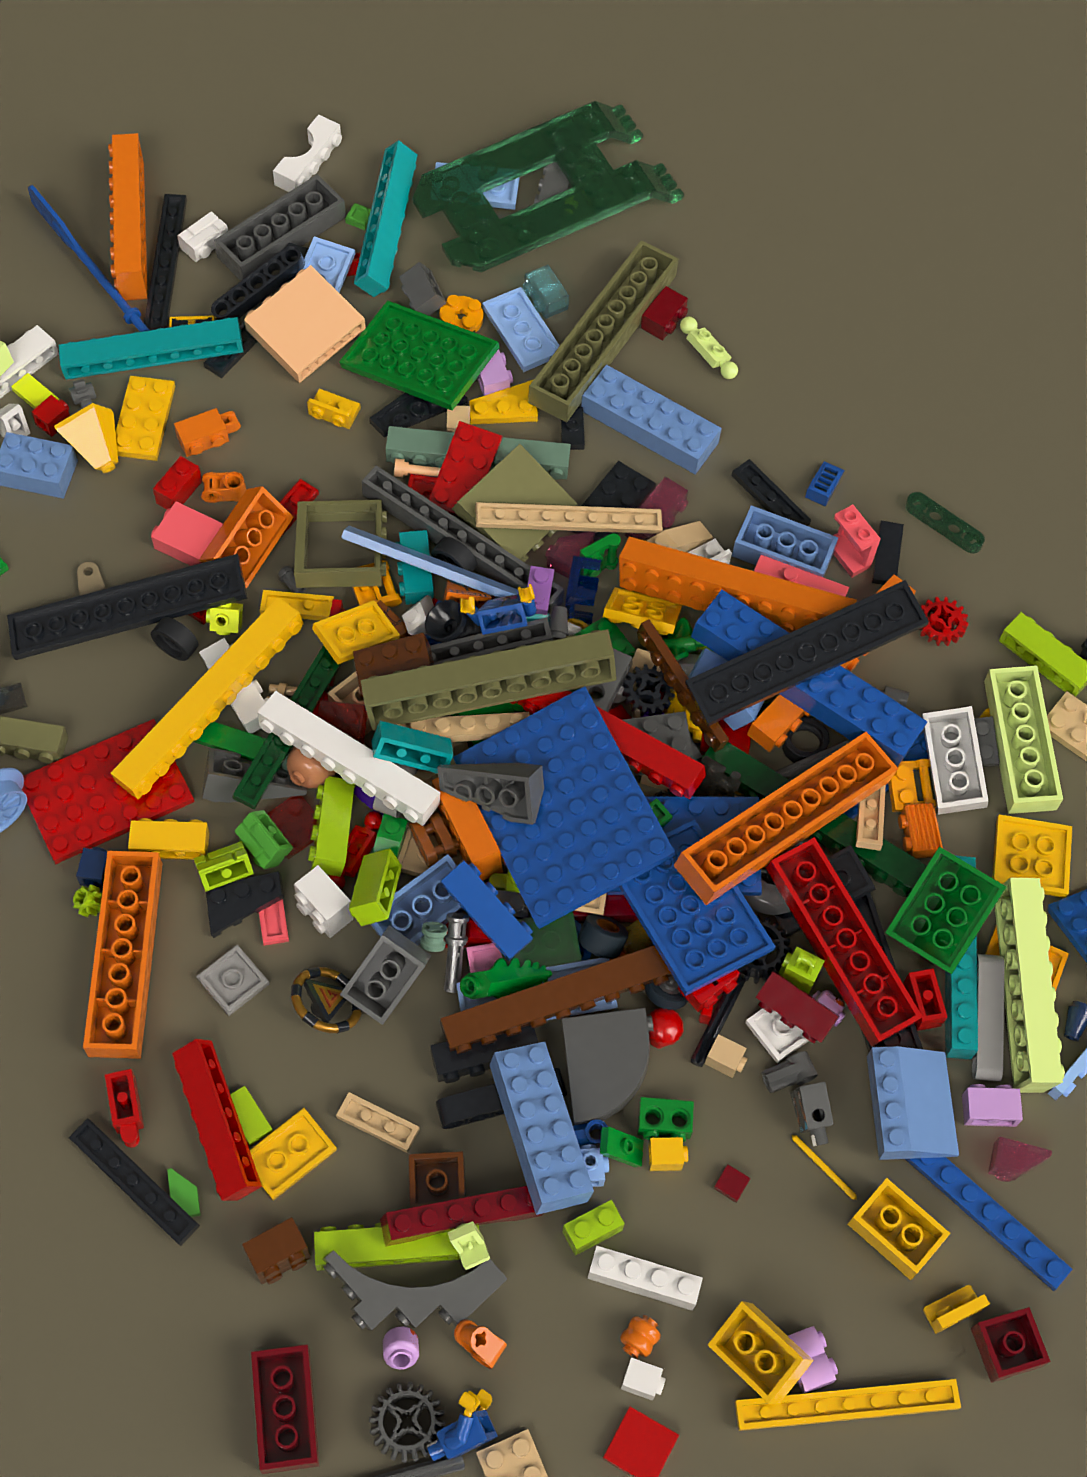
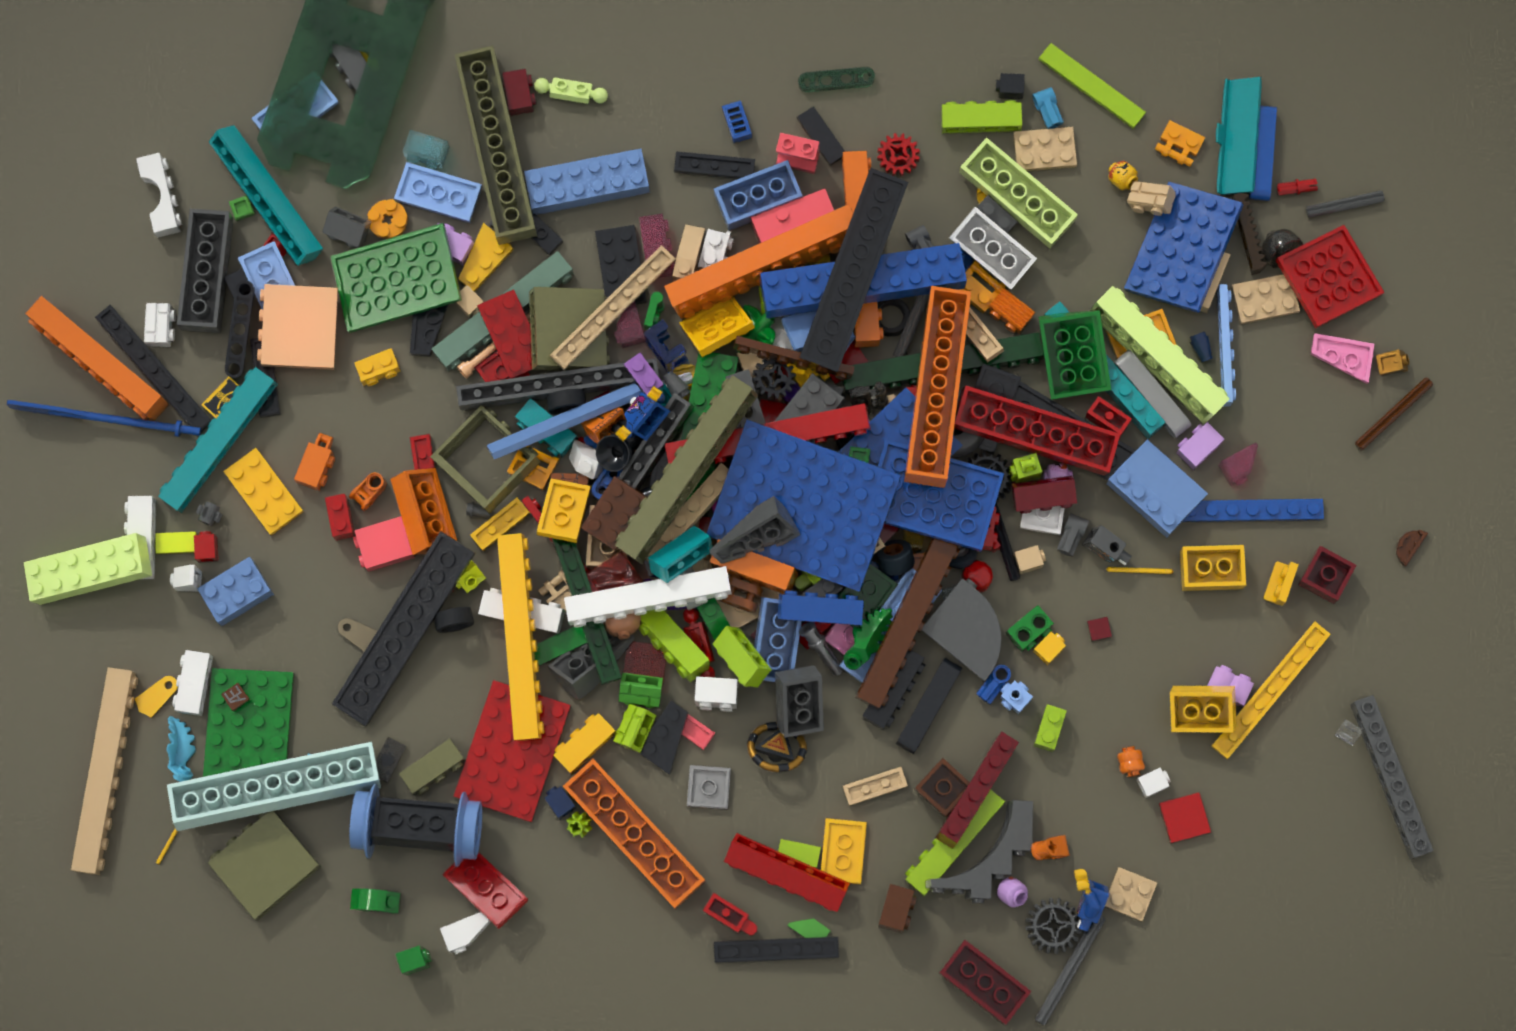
camera: 35 degrees left, 15 degrees up
(92, 435) = (255, 539): yellow slope -> none
(433, 936) = (804, 653): sand green wheel -> none
(469, 1244) = (998, 804): yellowish green bracket -> none
(541, 1128) = (972, 703): medium blue brick -> none
(621, 1147) = (1022, 669): green plate -> none
(645, 1278) = (1103, 728): white brick -> none
(1033, 851) = (1088, 264): yellow plate -> none

